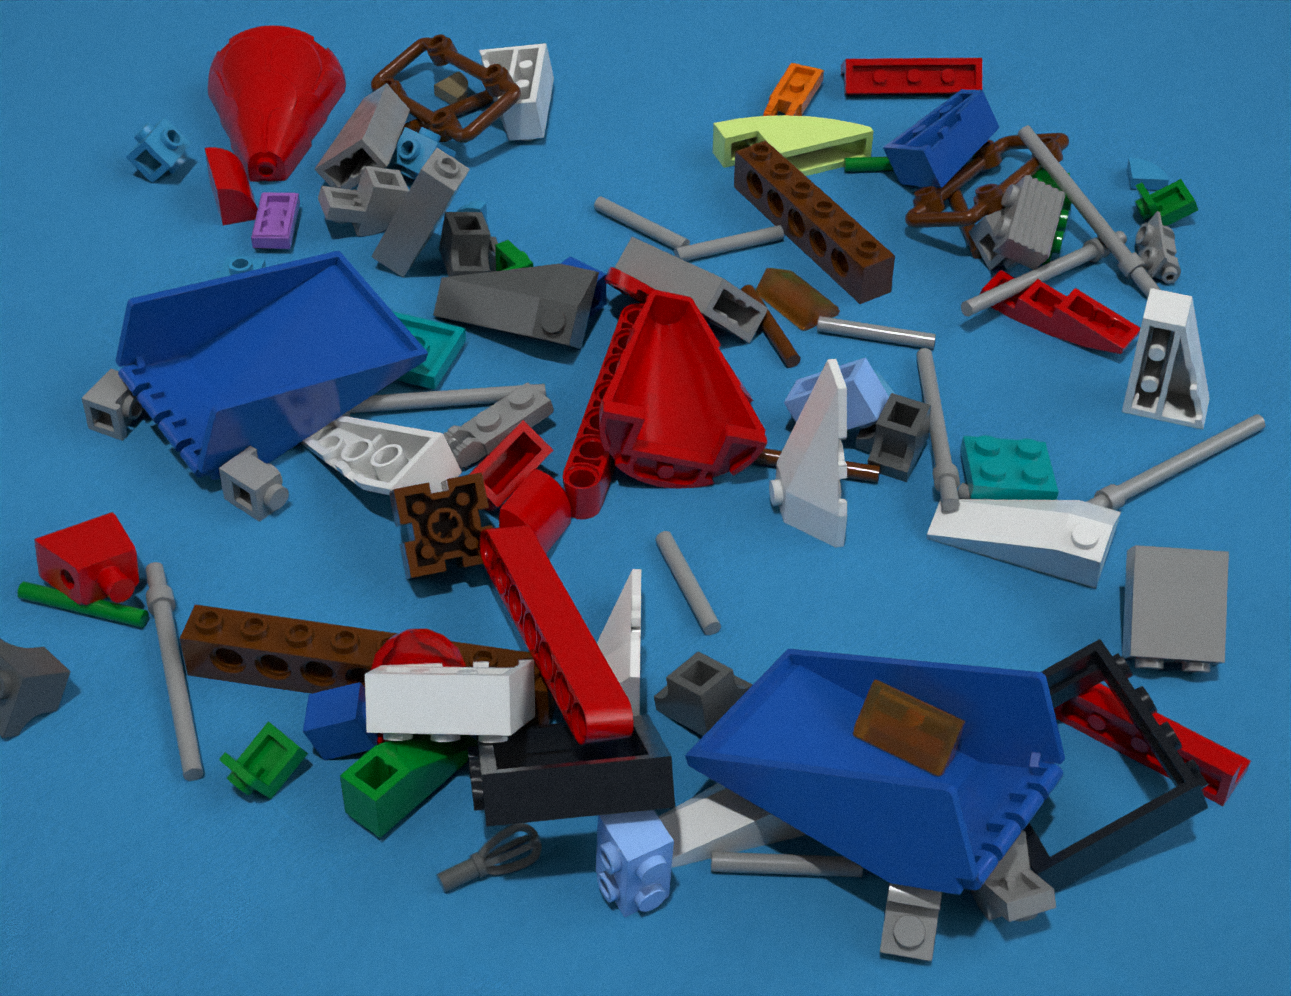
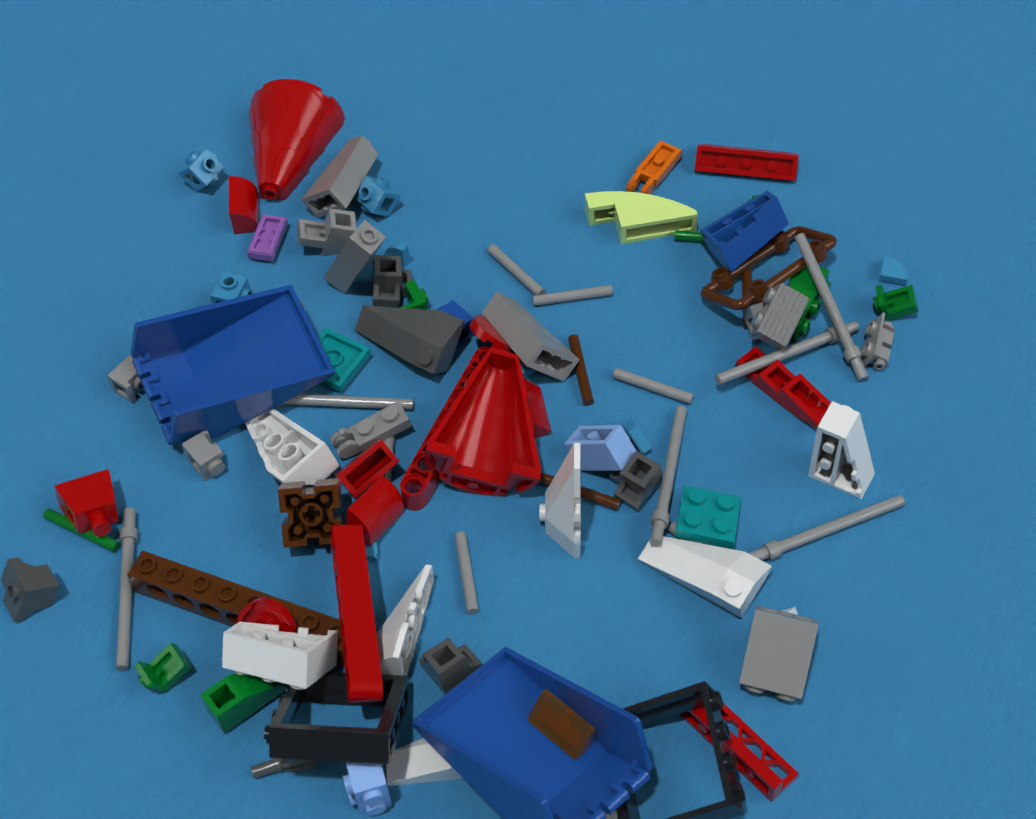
camera: 15 degrees right, 10 degrees up
(338, 722) = (208, 647): blue brick -> none
(442, 122) = (436, 141): reddish brown bar -> none
(452, 88) = (416, 134): dark tan tile -> none
(458, 108) = (406, 155): reddish brown bar -> none
(533, 73) = (459, 144): white wedge -> none
(784, 864) = (453, 793): light grey bar -> none
(794, 298) = (605, 348): clear orange slope -> none
(814, 222) = (633, 287): reddish brown brick -> none

